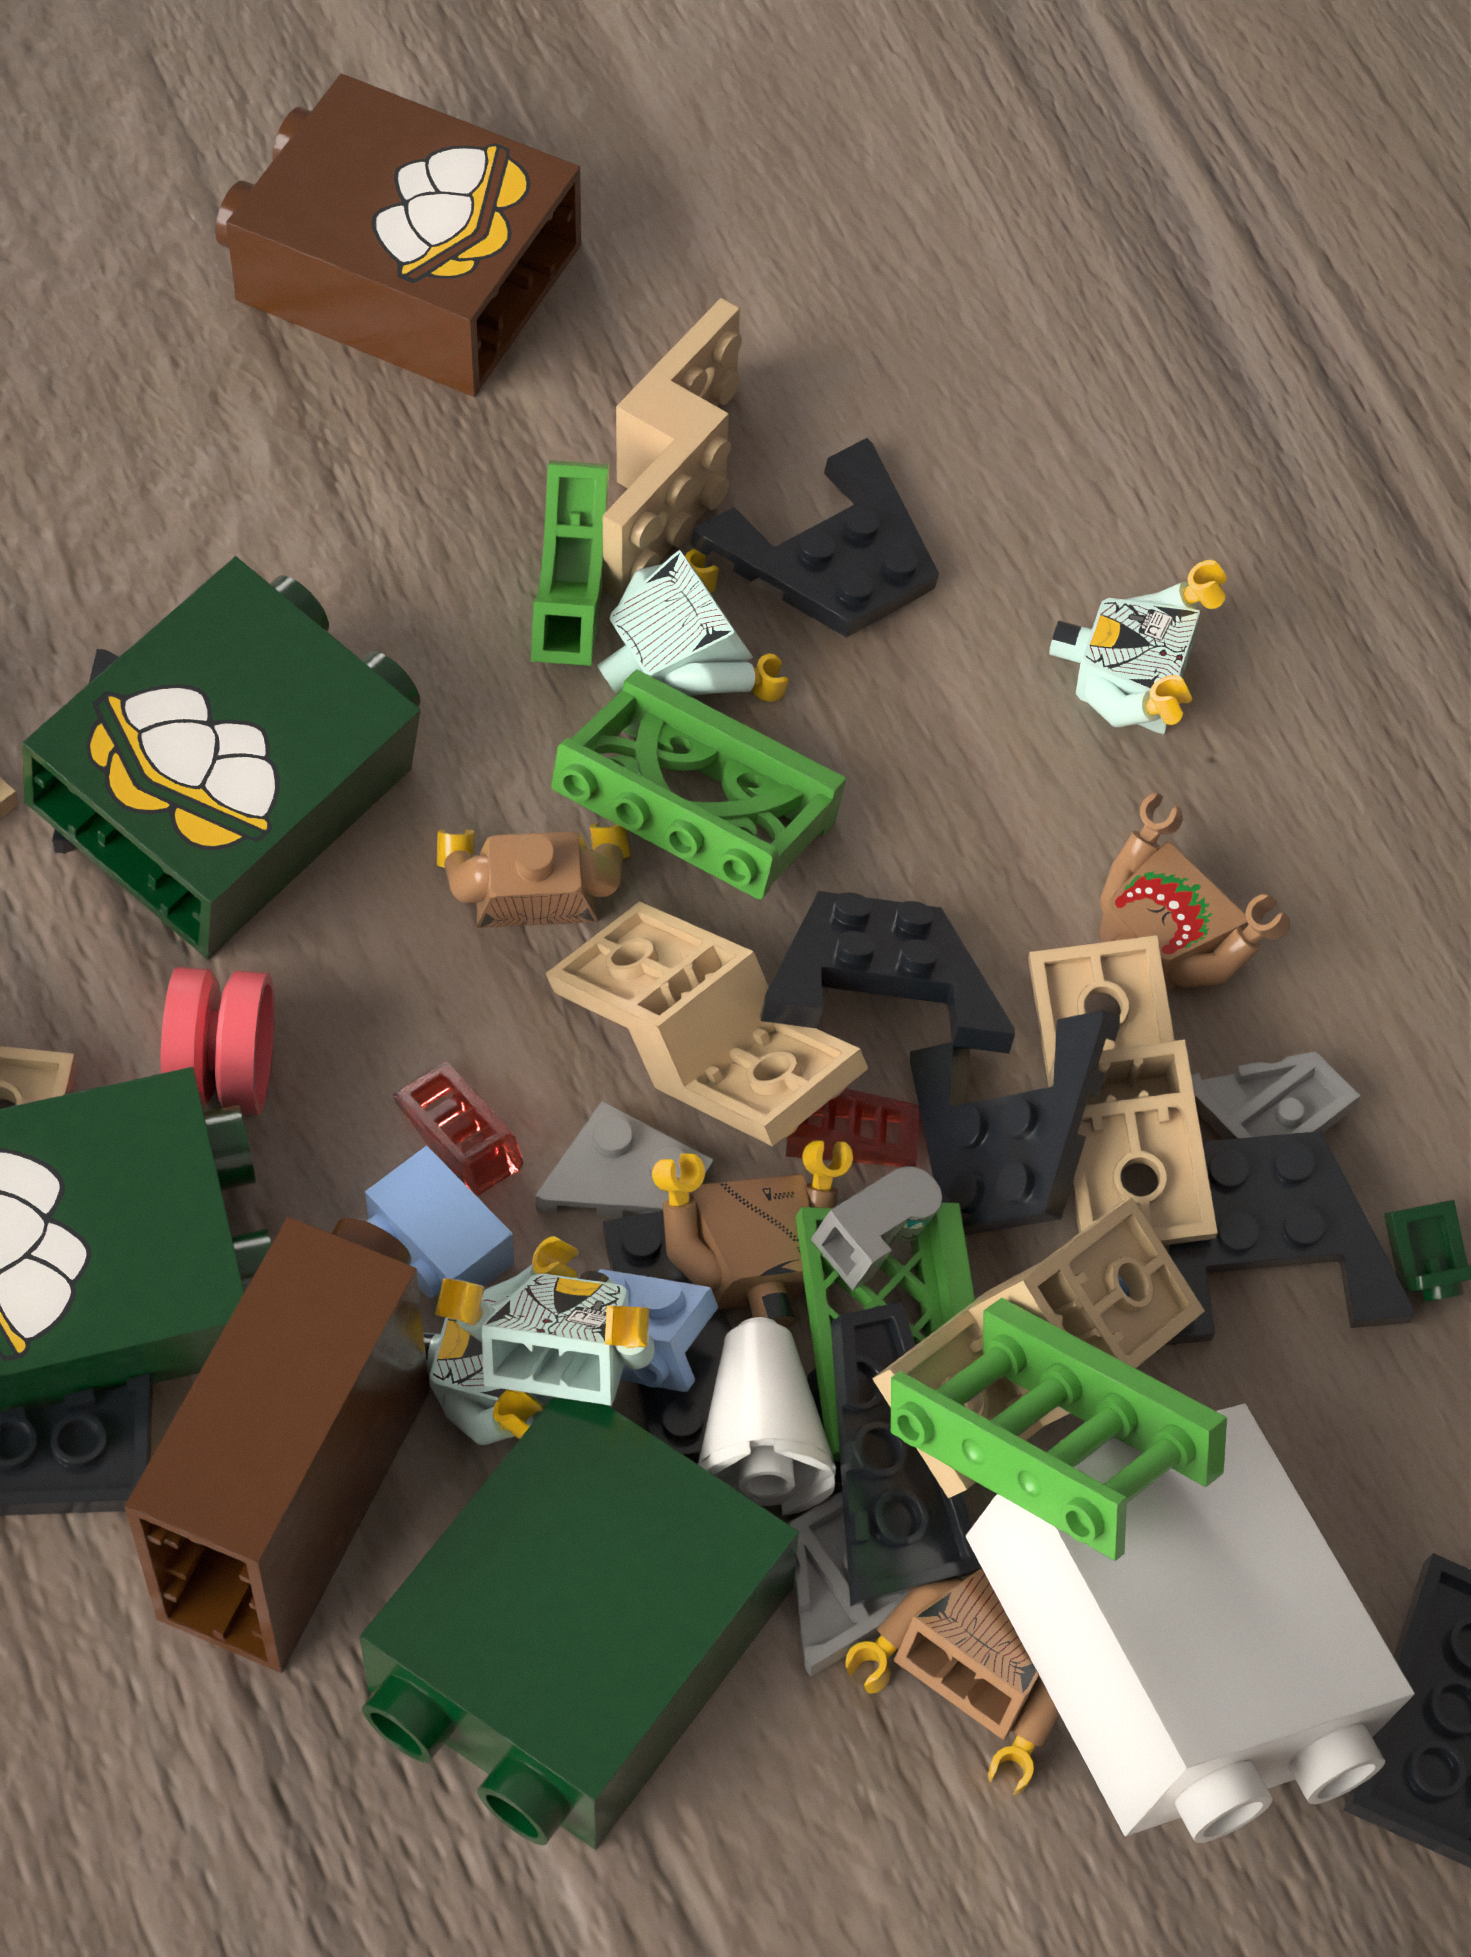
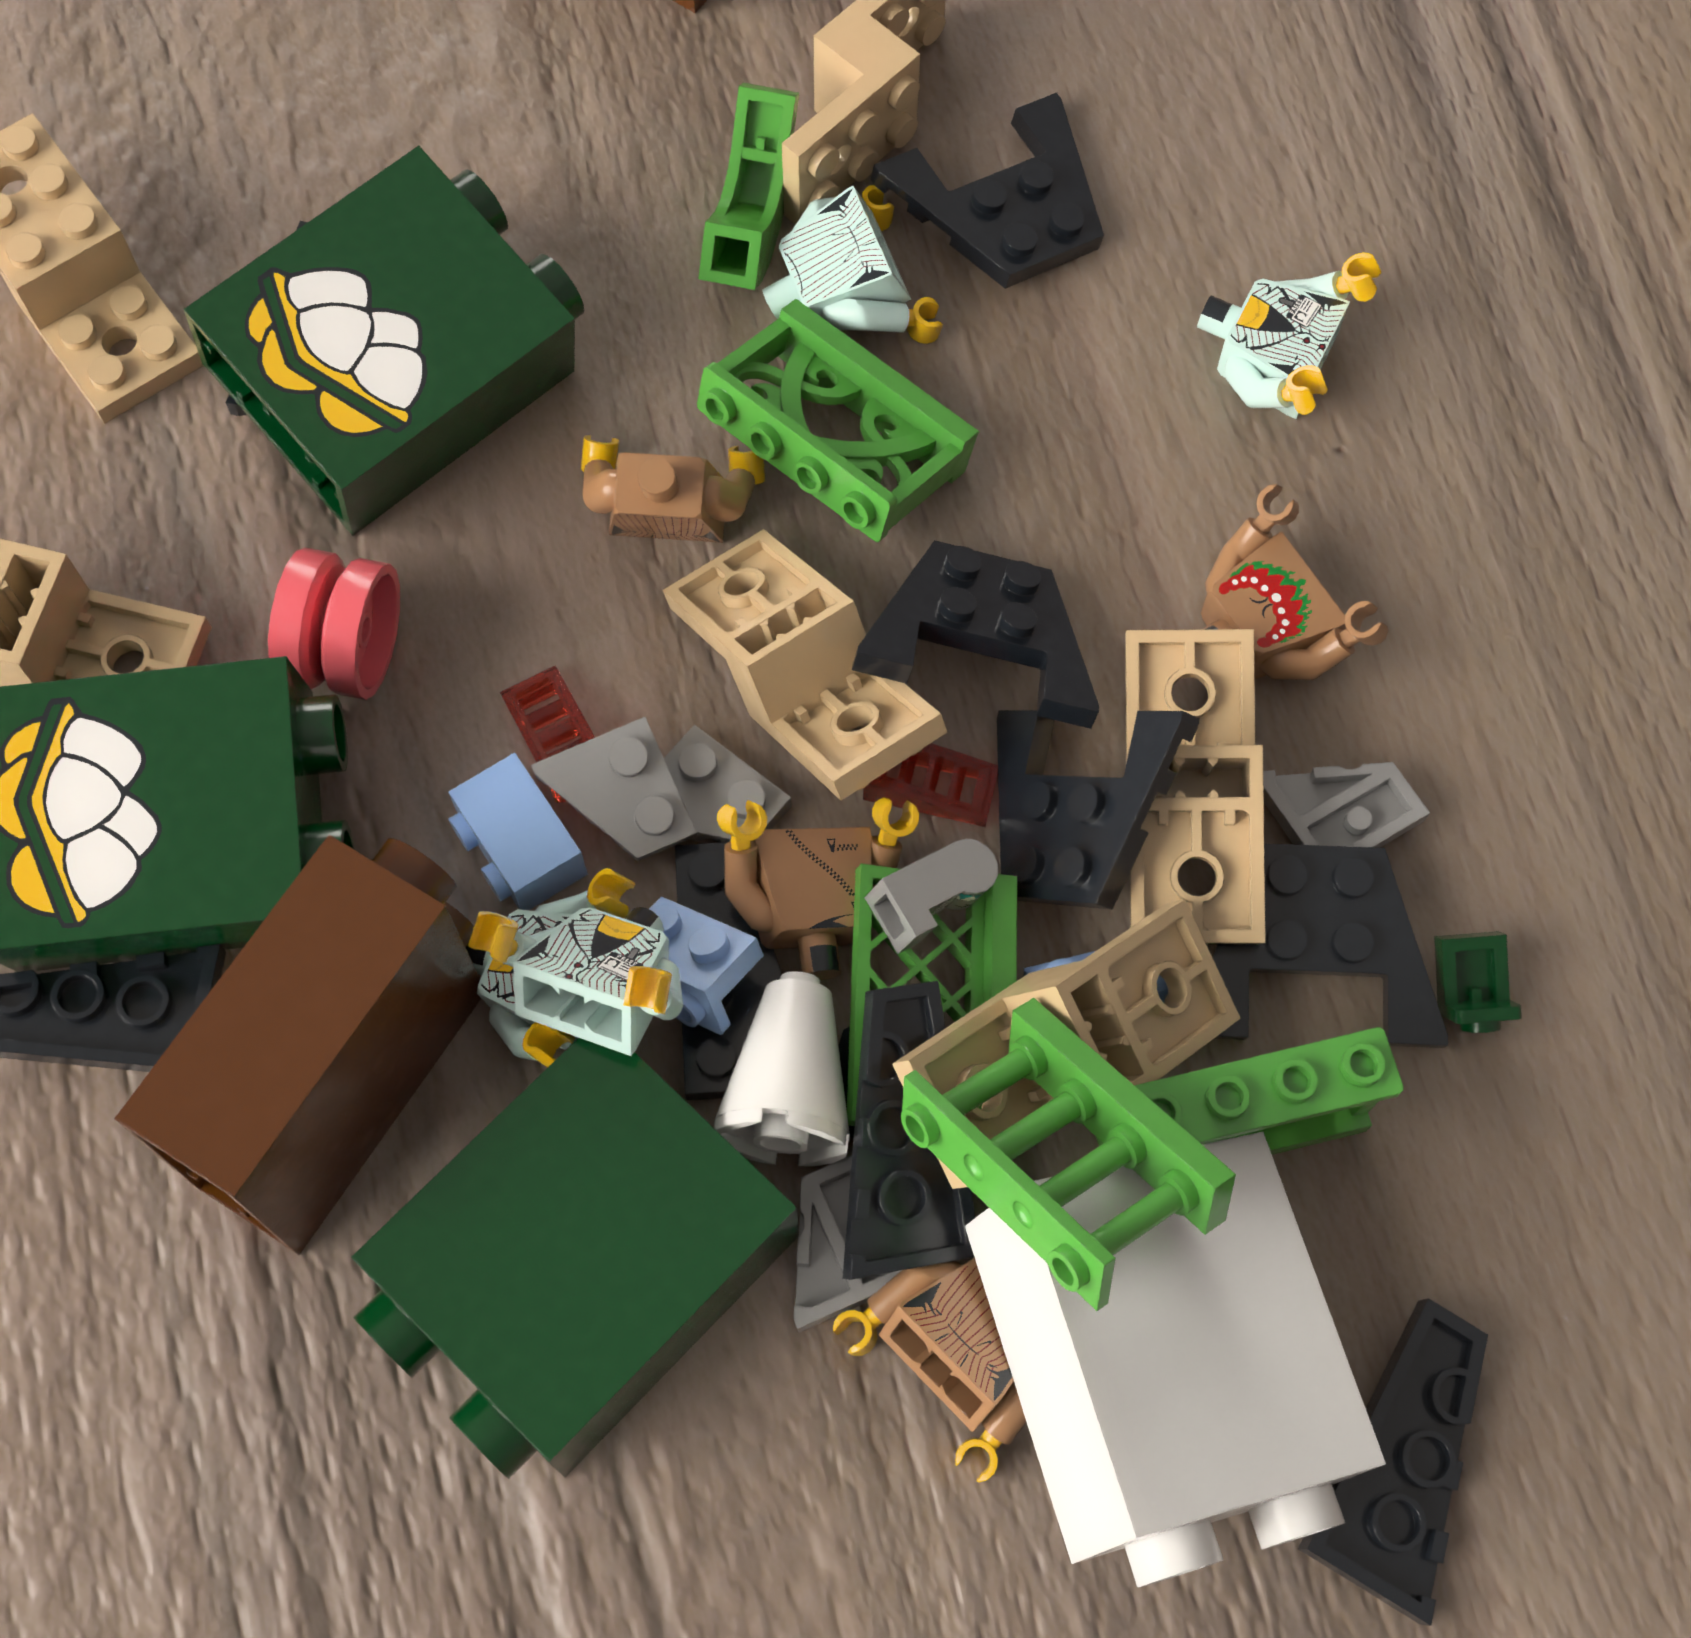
camera: 10 degrees right, 10 degrees up
(542, 1168) = (622, 789): none -> light grey wing
(1281, 1364) = (1288, 1094): none -> bright green fence

